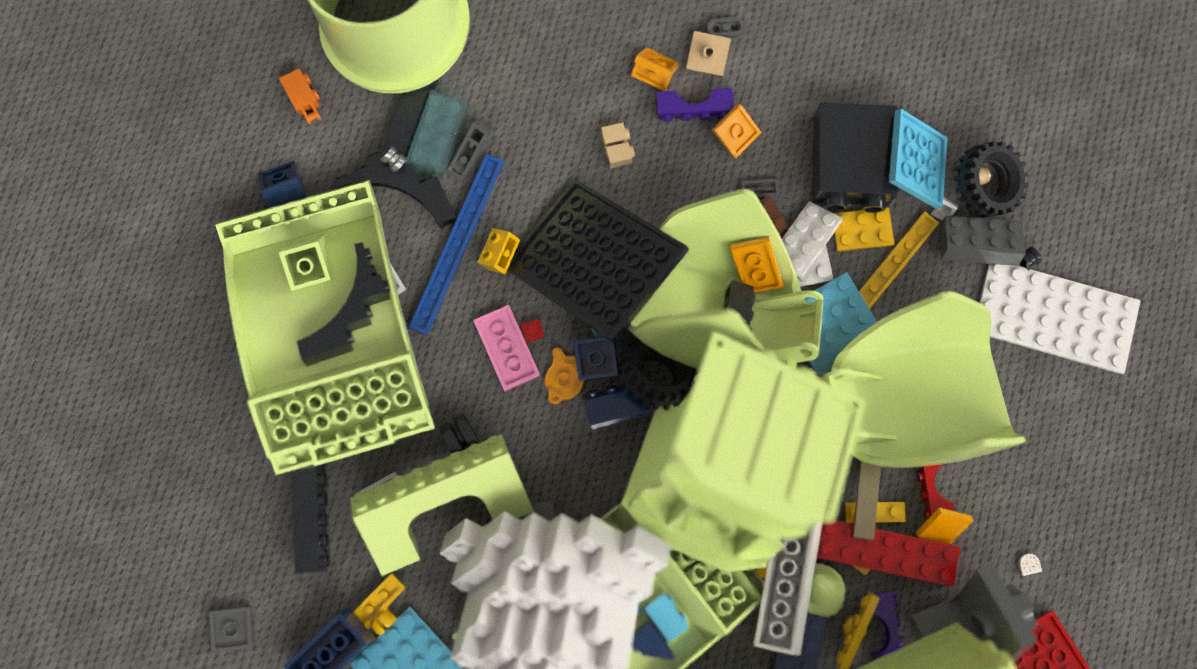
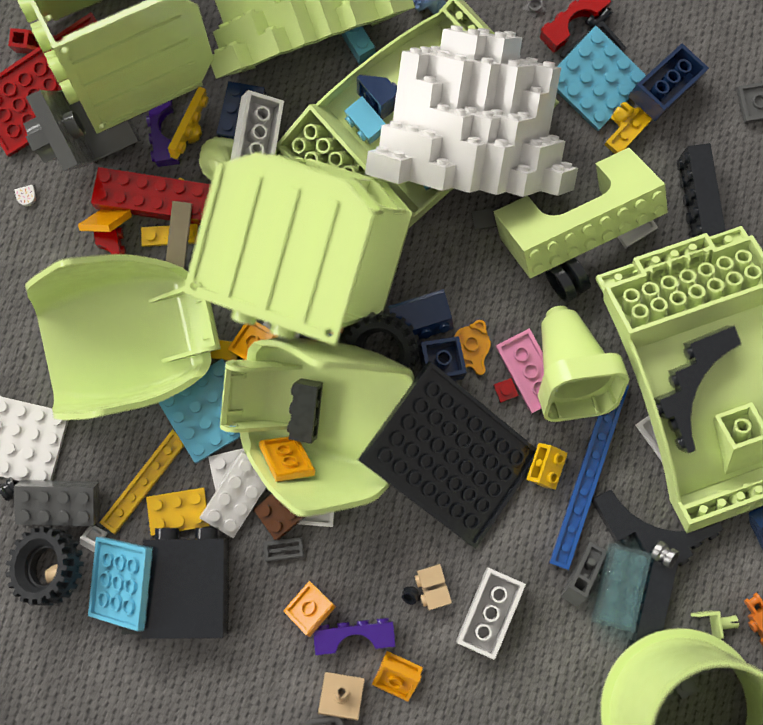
camera: 175 degrees left, 0 degrees up
(349, 99) = (718, 623): none -> yellowish green bracket
(463, 342) = (577, 372): none -> yellowish green cone
(564, 117) = (490, 613): none -> white brick
(638, 139) = (411, 595): none -> black plate

